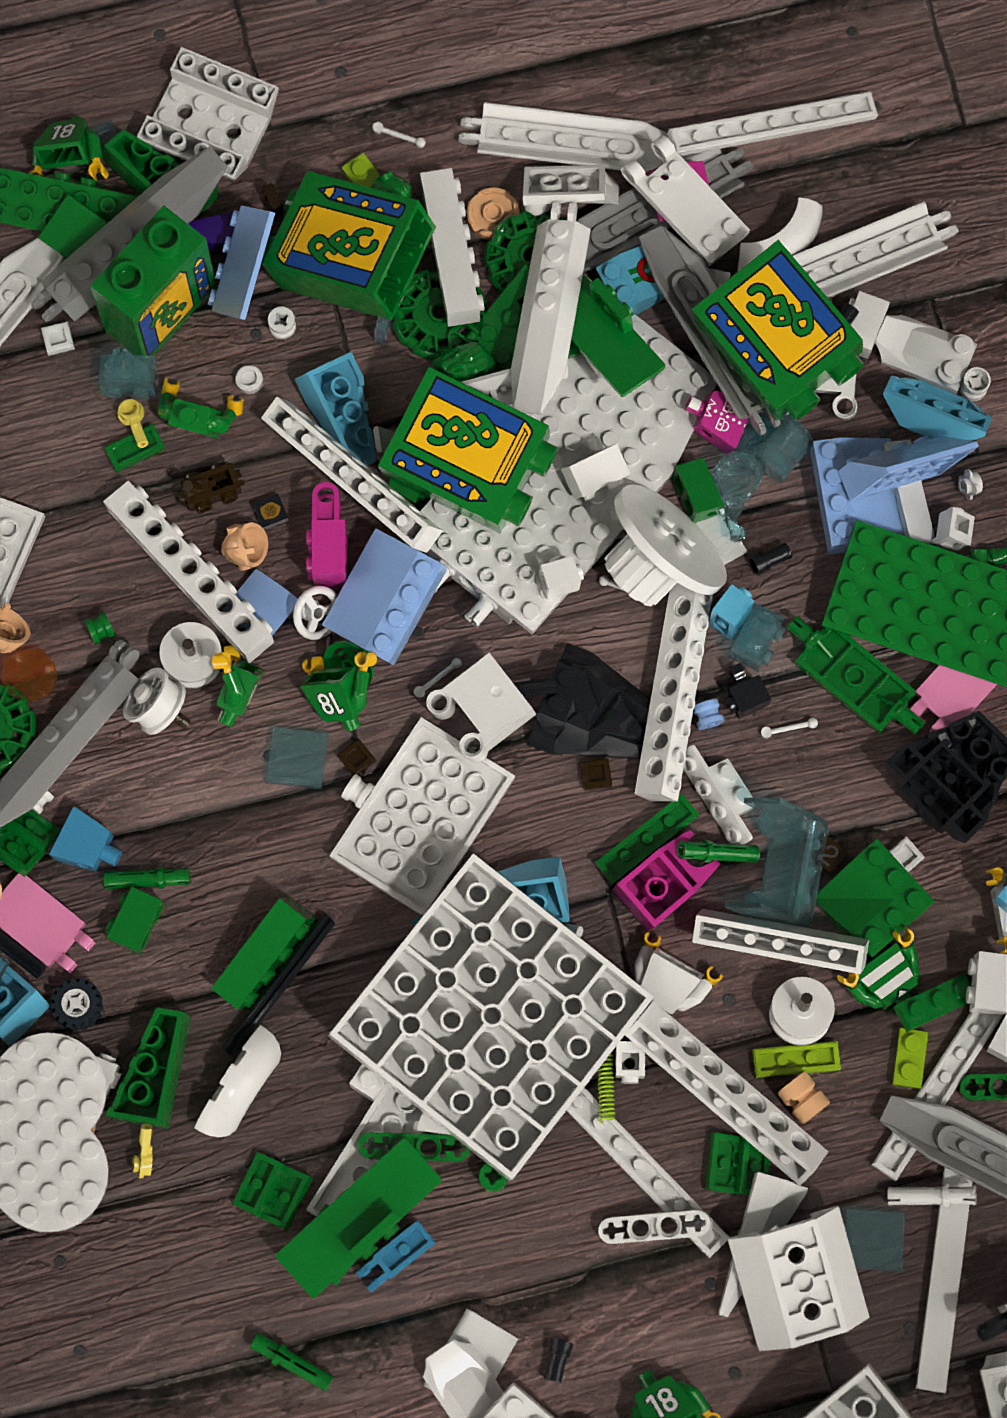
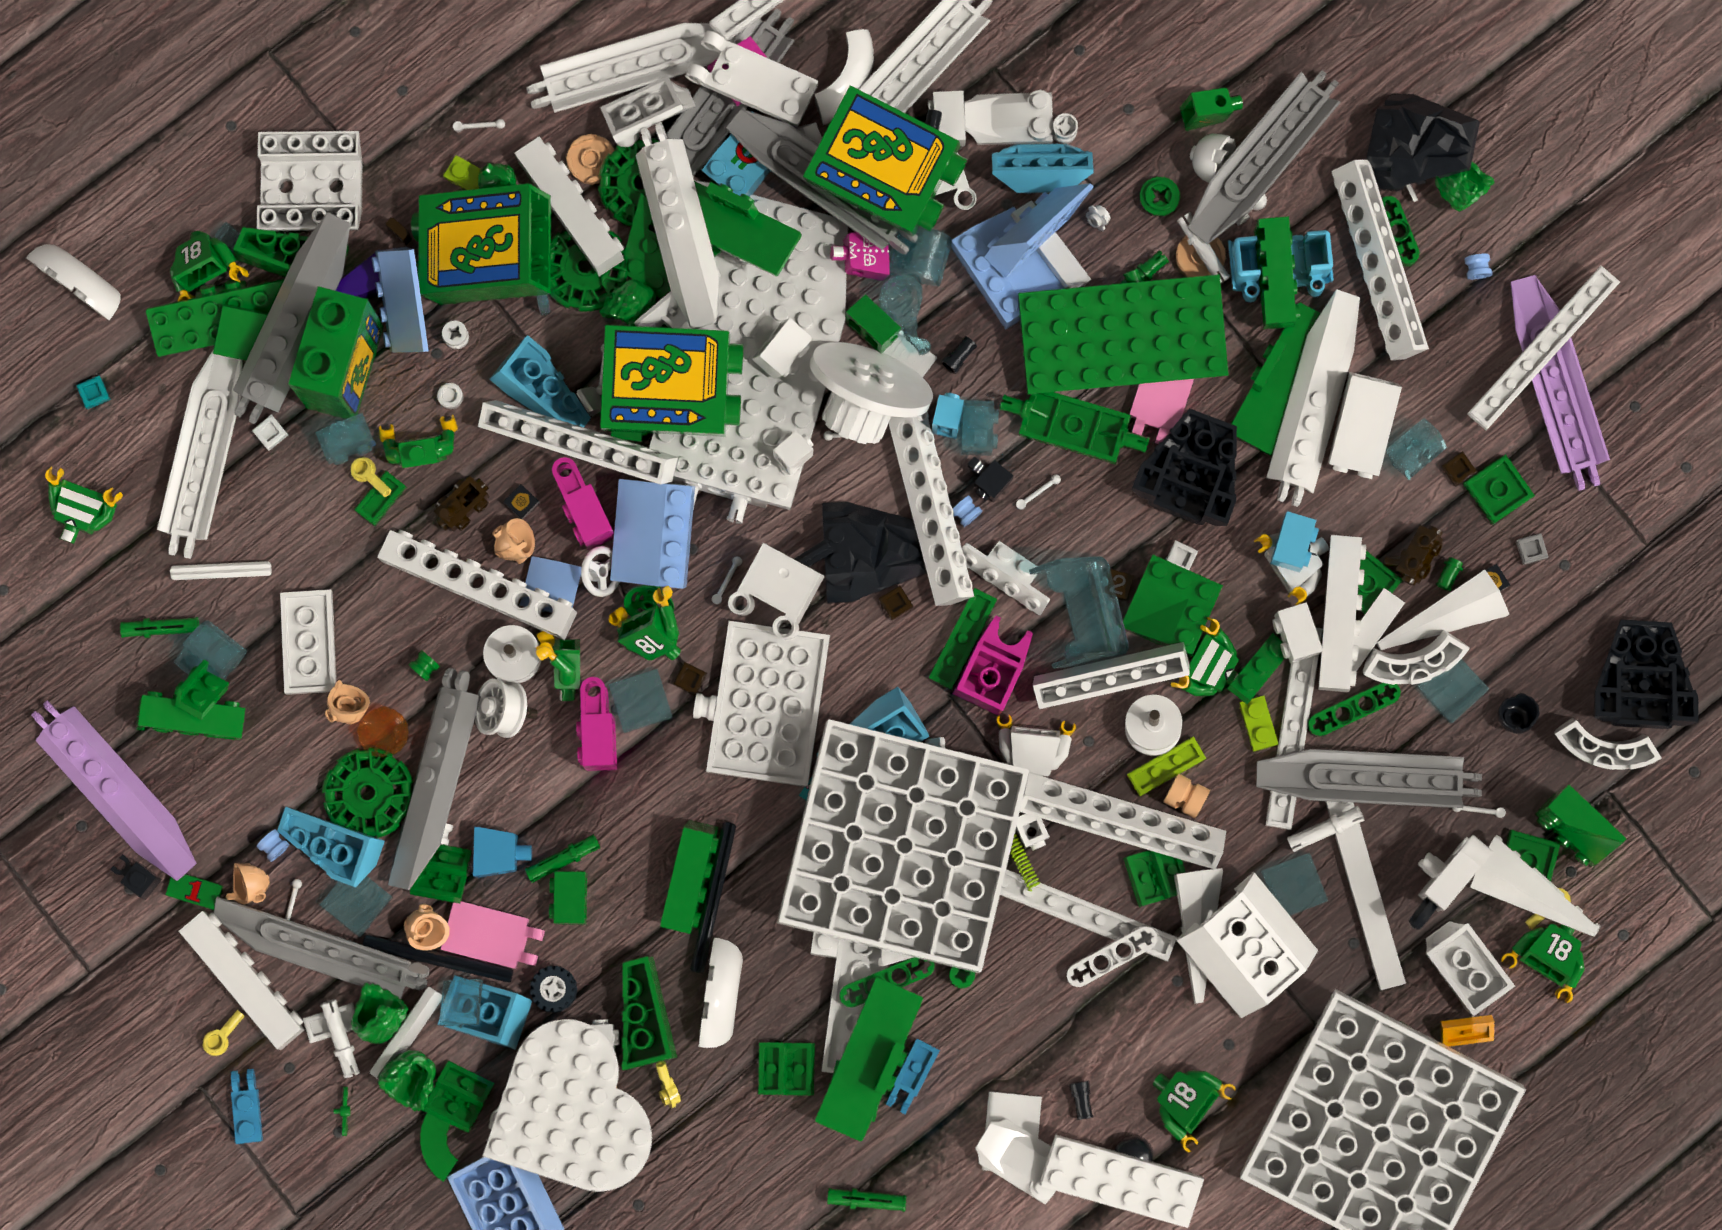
camera: 20 degrees left, 5 degrees up
(239, 764) = (596, 729): none -> dark pink brick
(707, 851) = (1018, 627): green pin -> none
(954, 530) = (1102, 262): white brick -> none

